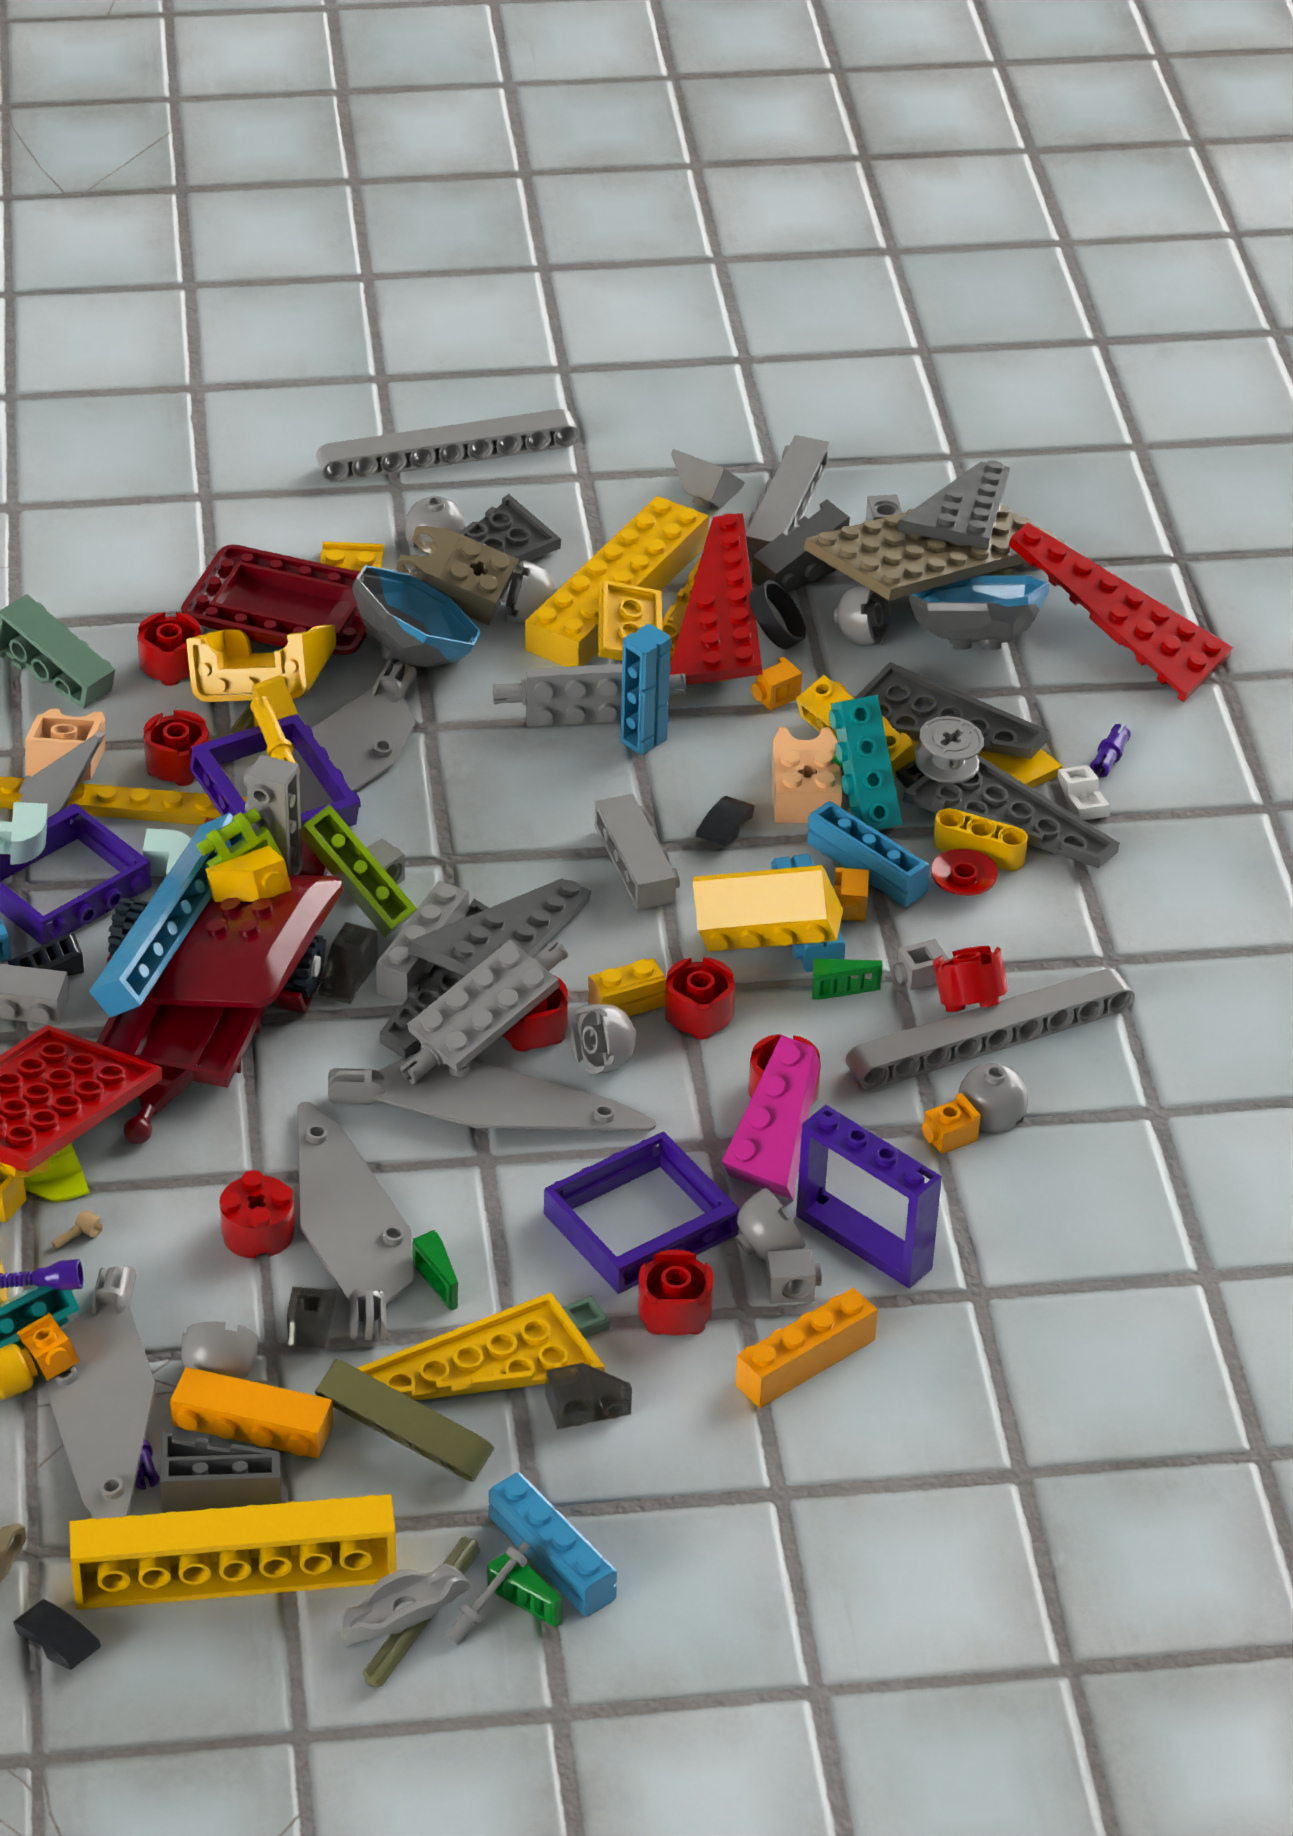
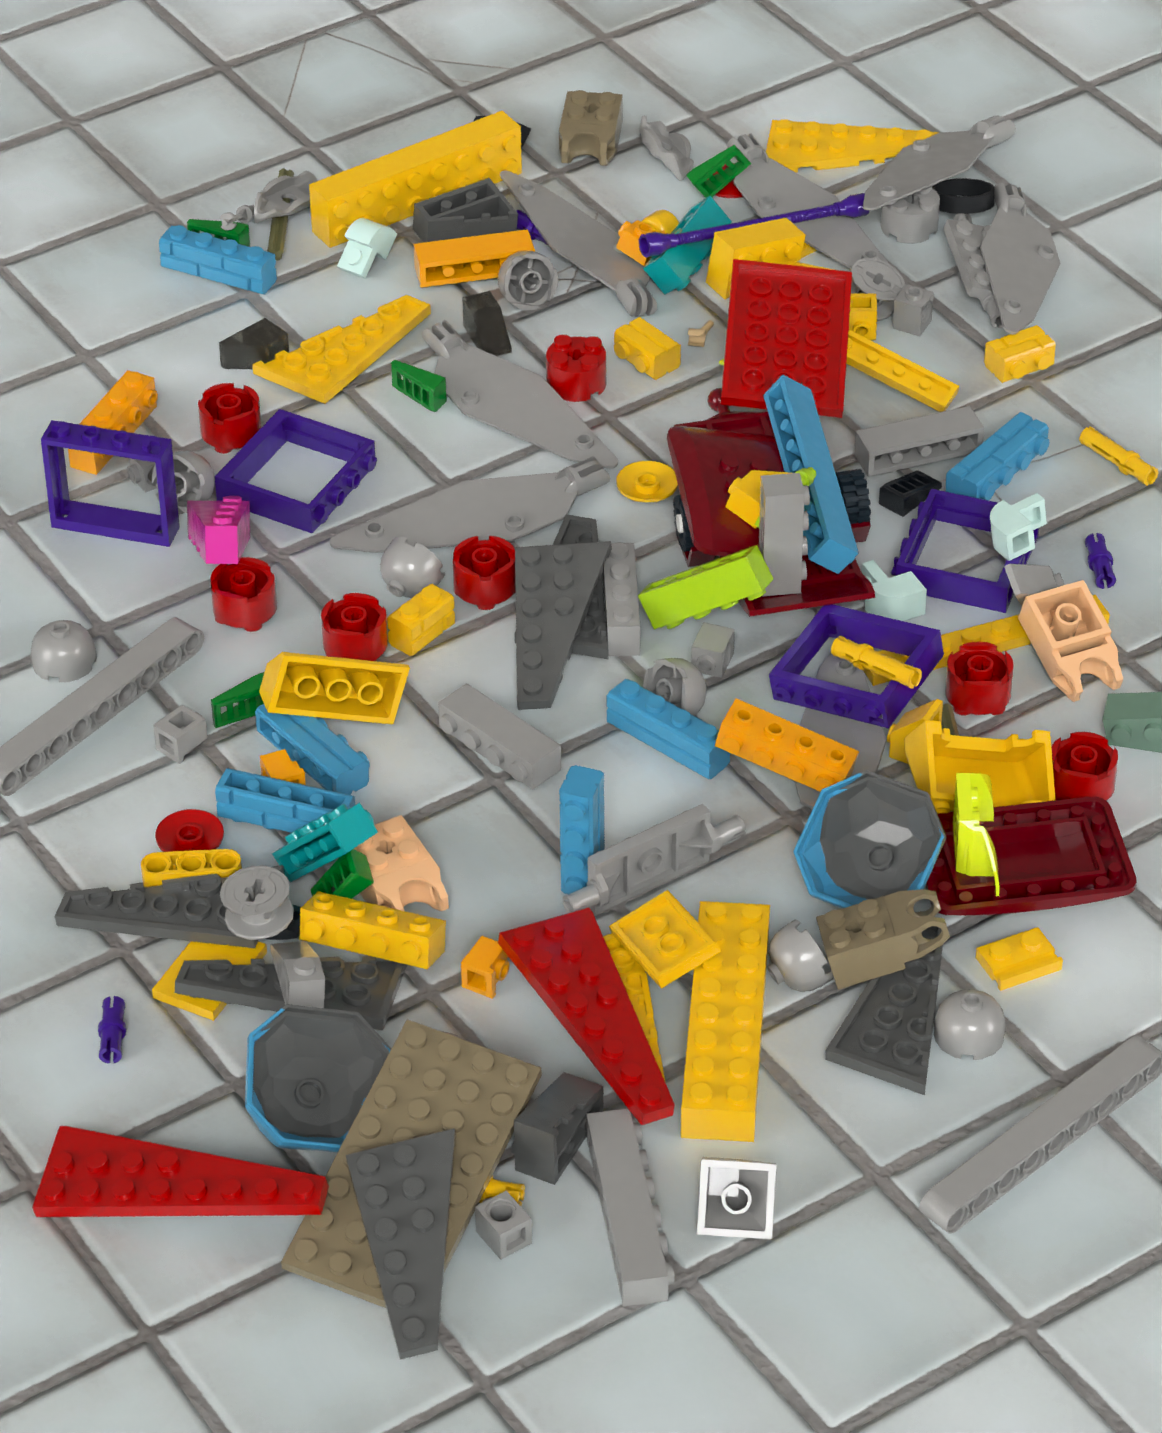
camera: 155 degrees right, 0 degrees up
(159, 1218) = (647, 348): none -> yellow brick
(294, 1057) = (647, 481): none -> yellow dish
(319, 601) = (972, 843): none -> neon yellow piece
(349, 963) = (663, 557): clear smoke slope -> none
(361, 1476) = (365, 242): none -> light aqua brick
(405, 1420) = (354, 290): olive beam -> none
(408, 720) = (782, 749): none -> light orange brick
(444, 832) = (677, 683): none -> light grey cylinder
(480, 809) = (666, 728): none -> dark azure brick
(482, 1007) = (510, 525): light grey plate -> none
(587, 1316) = (293, 401): sand green tile -> none
(724, 820) = (443, 812): black slope -> none
(768, 621) = (504, 1012): black tyre -> none
(944, 685) = (299, 973): none -> light grey slope
(951, 1124) = (90, 612): light orange brick -> none
(970, 978) = (124, 708): red brick -> none
(1082, 792) = (116, 973): white slope -> none

